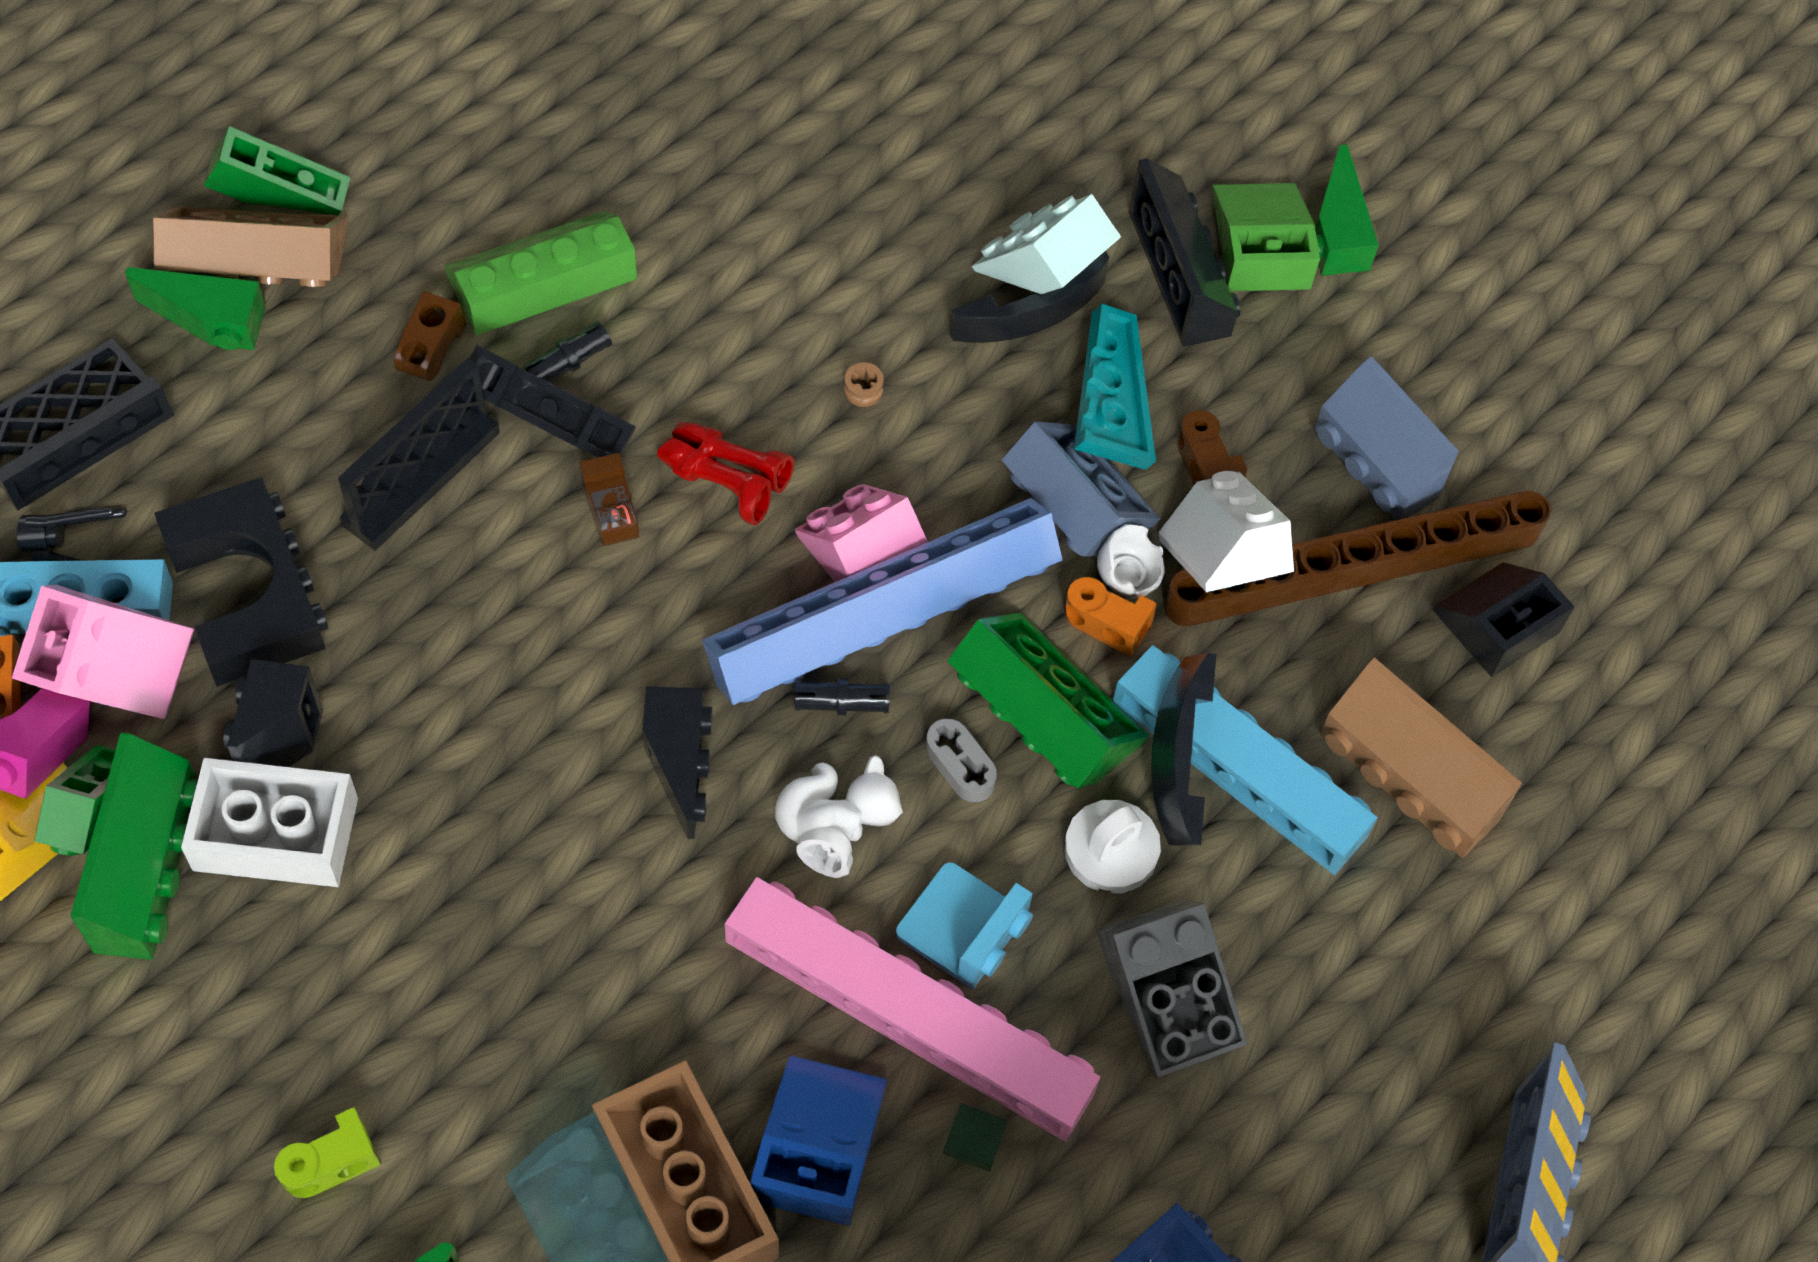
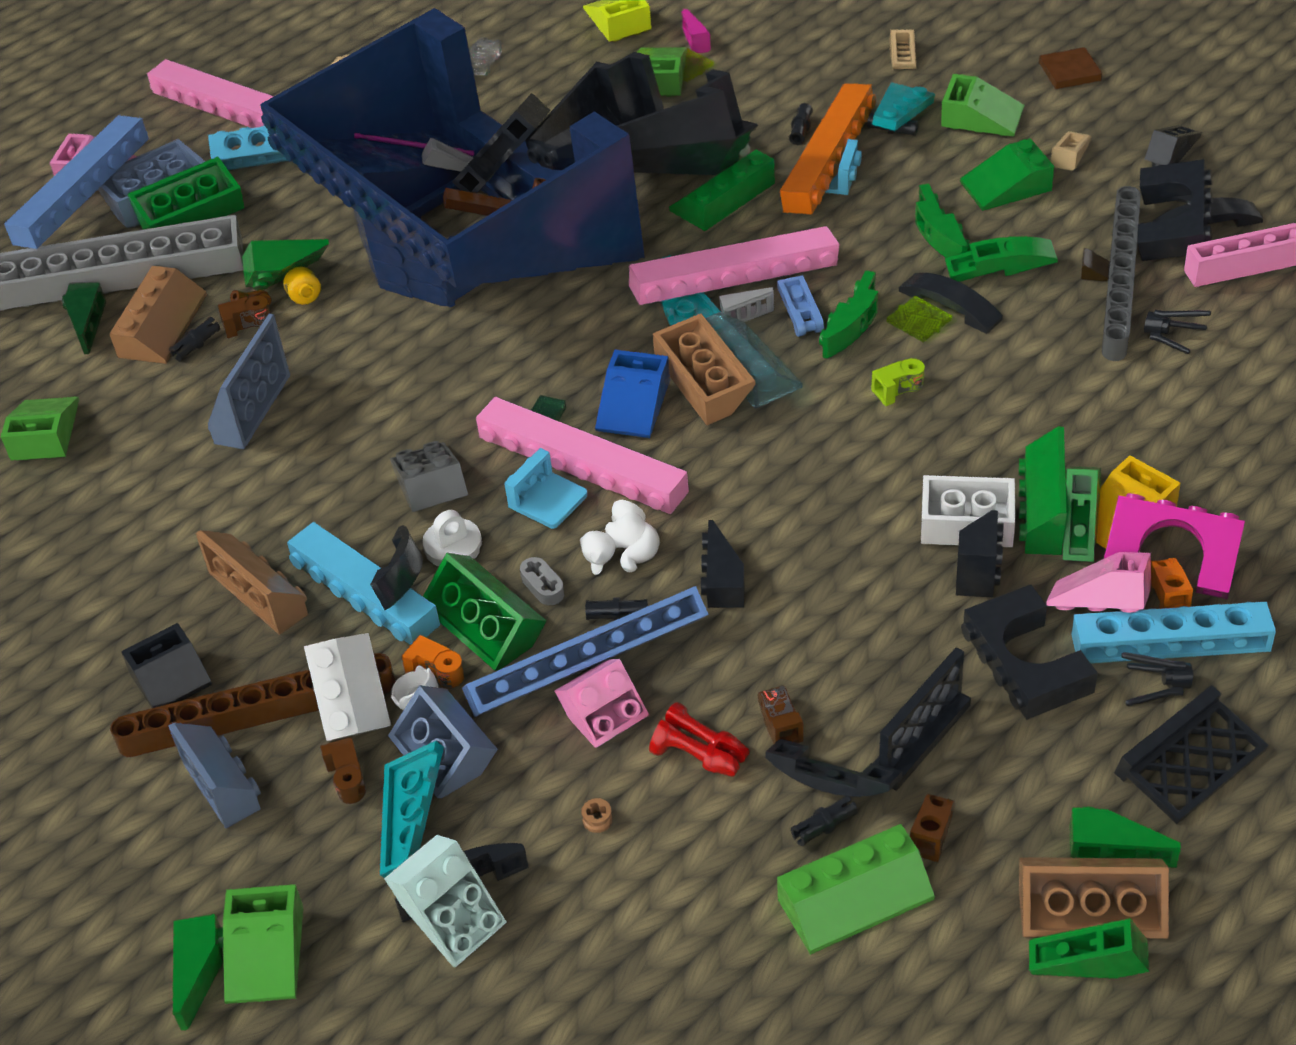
camera: 170 degrees left, 15 degrees down
(1181, 256) = (333, 915): black slope -> none

